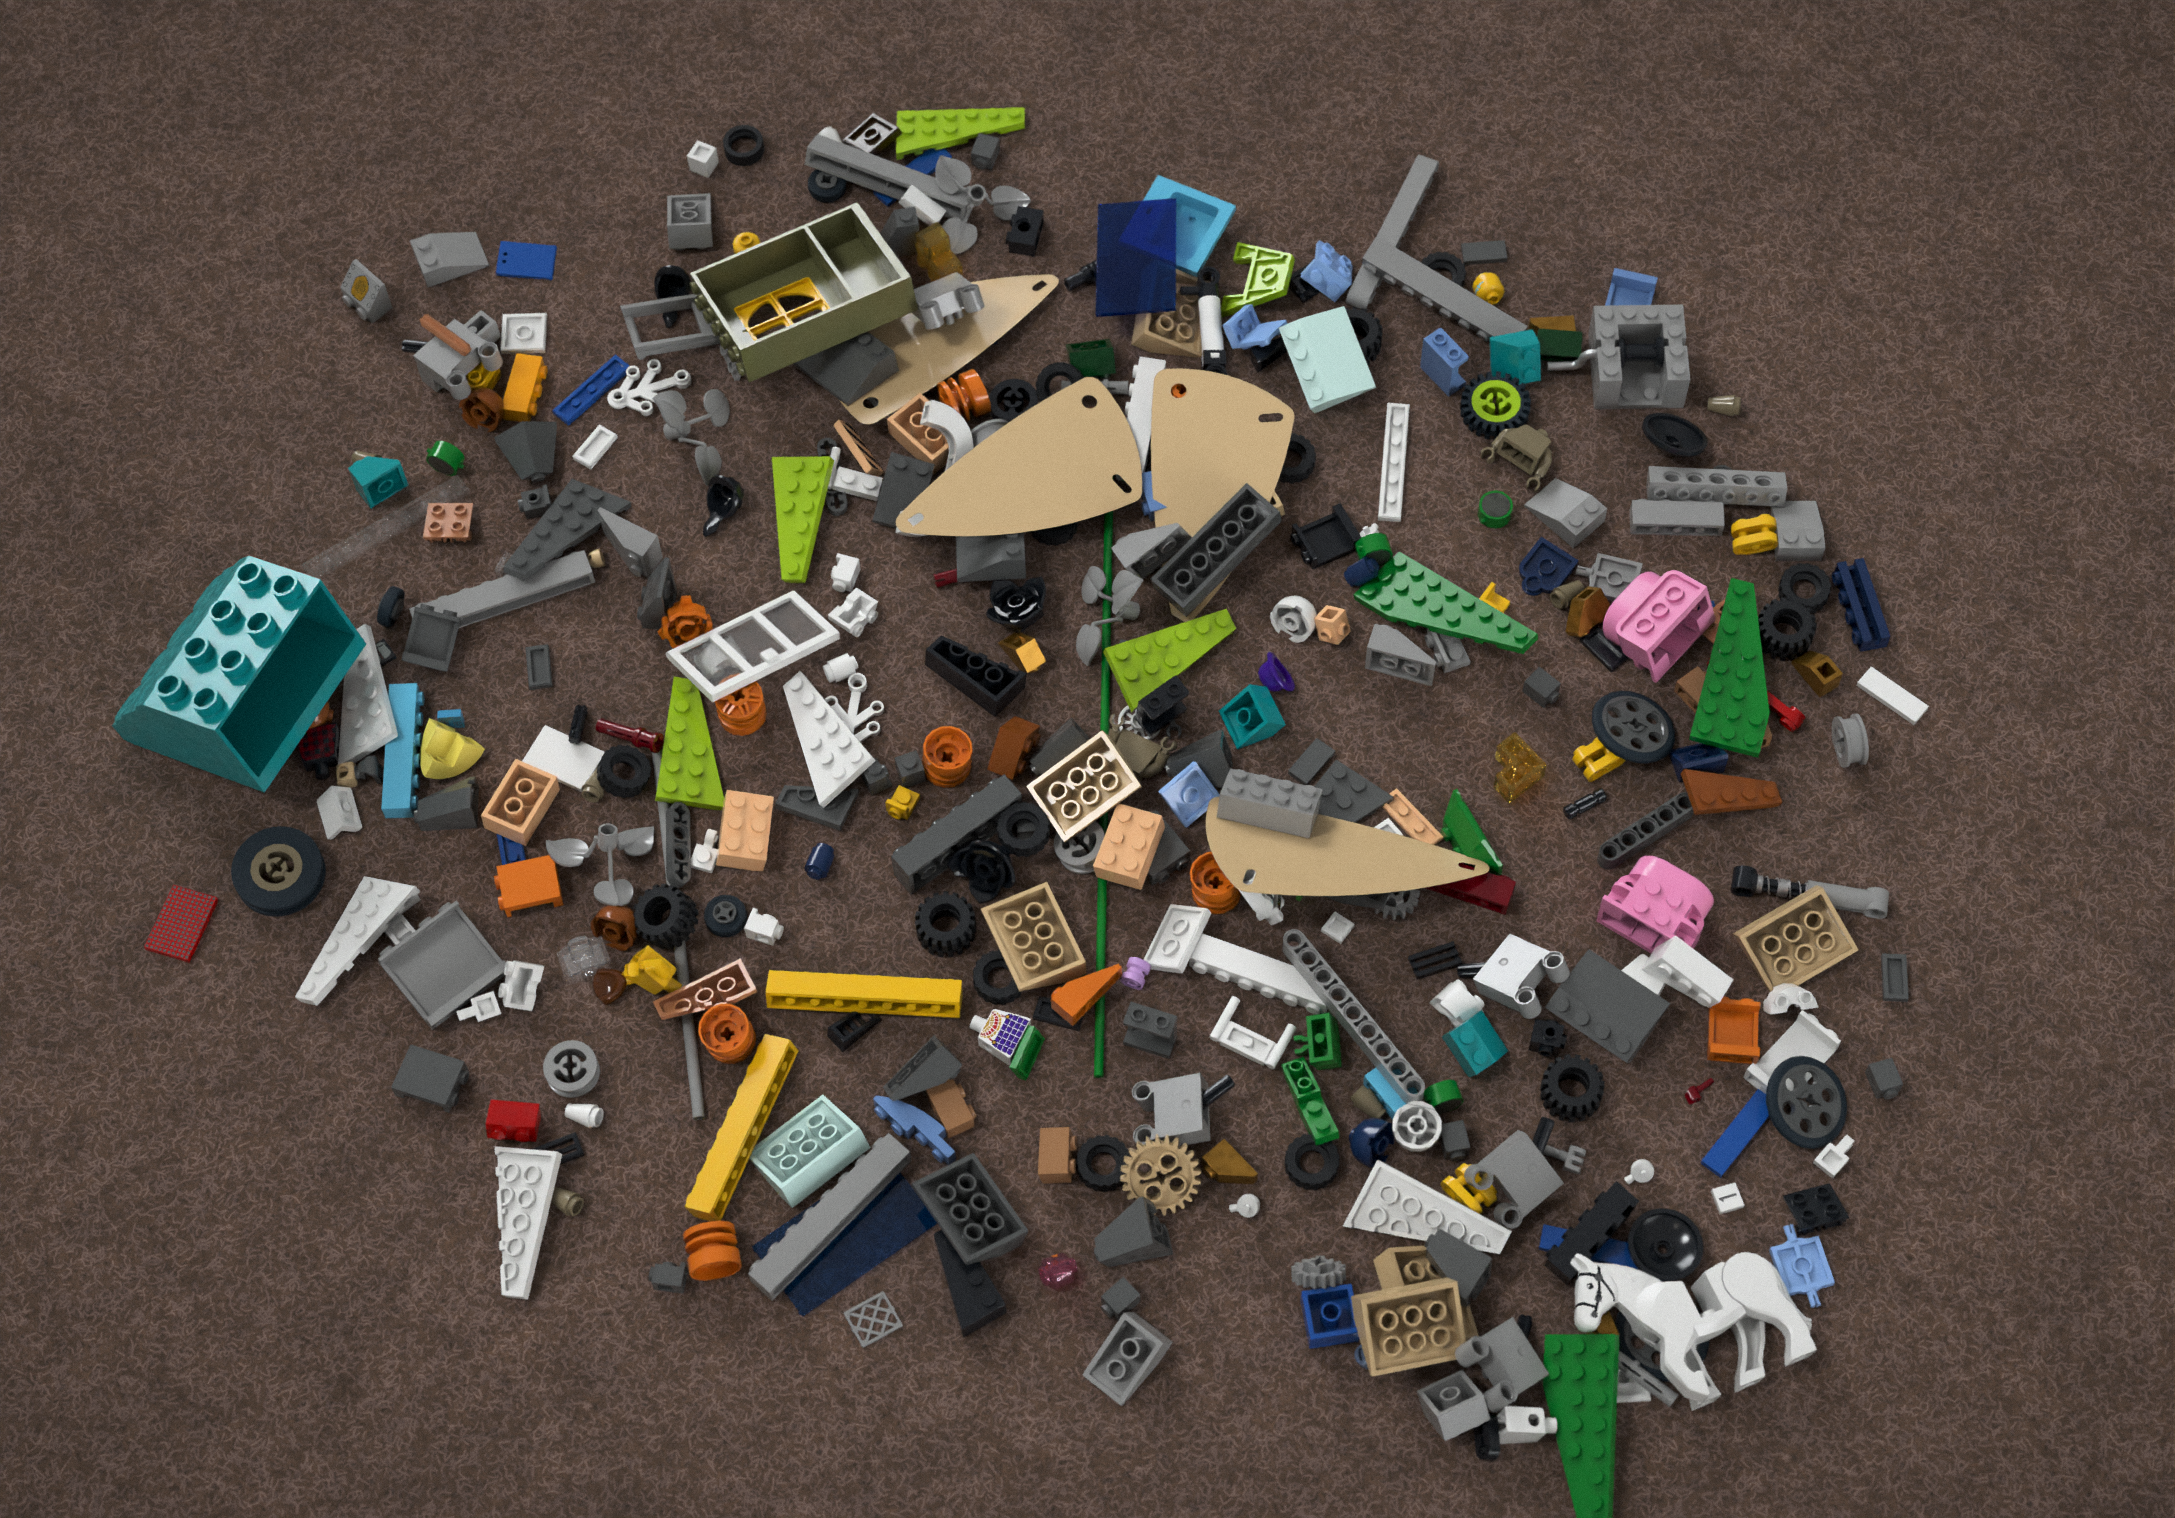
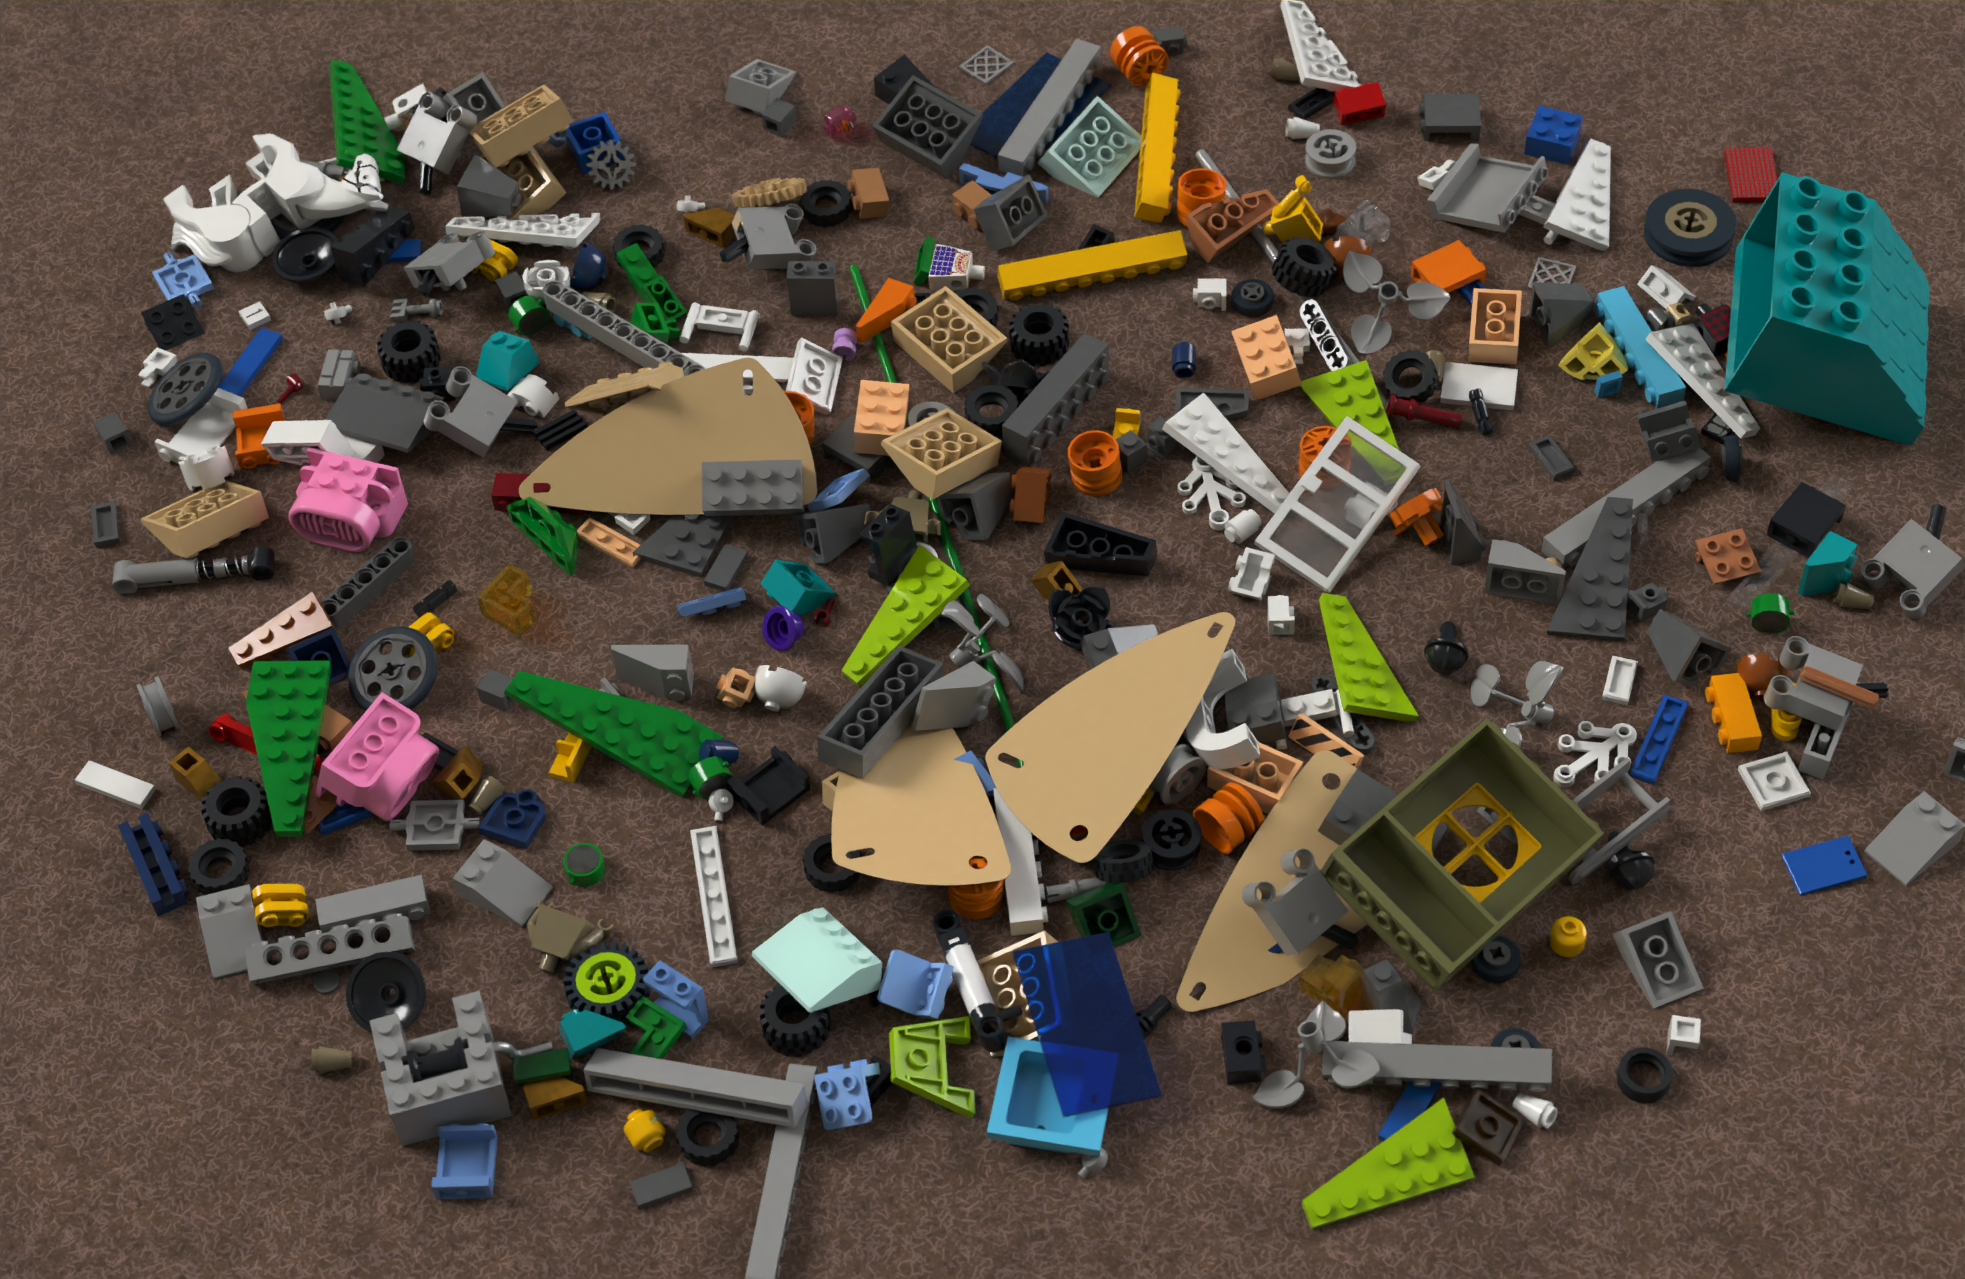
camera: 165 degrees right, 10 degrees down
(304, 459) = (1917, 561): none -> light grey piece
(343, 1020) = (1553, 135): none -> blue brick
(364, 527) = (1805, 519): none -> black panel
(422, 853) = (1556, 264): none -> light grey window
(520, 984) = (1411, 194): white cylinder -> none
(985, 151) = (1336, 1145): dark grey brick -> none
(1133, 1236) = (778, 151): dark grey slope -> none
(1235, 689) = (825, 612): none -> dark red hand
(1333, 724) = (708, 604): none -> medium blue hinge
(1366, 932) = (612, 394): none -> tan slope
(1474, 349) = (660, 1028): none -> green plate
(1647, 1085) = (337, 372): none -> light grey brick

